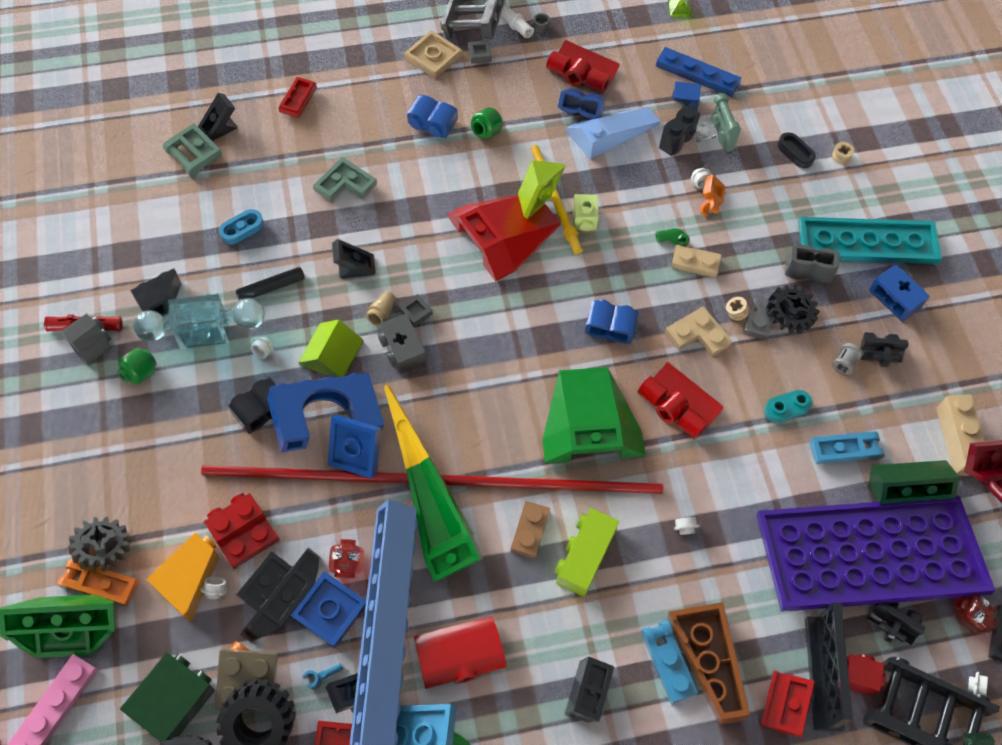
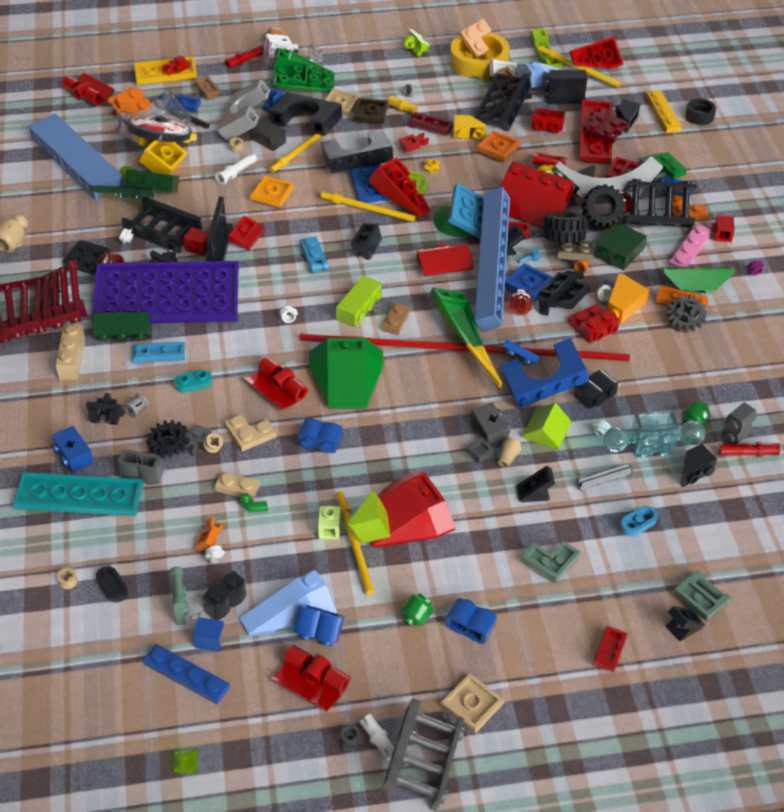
camera: 175 degrees left, 15 degrees down
(479, 51) = (424, 694): dark grey plate -> none
(712, 657) = (289, 250): dark orange wedge -> none

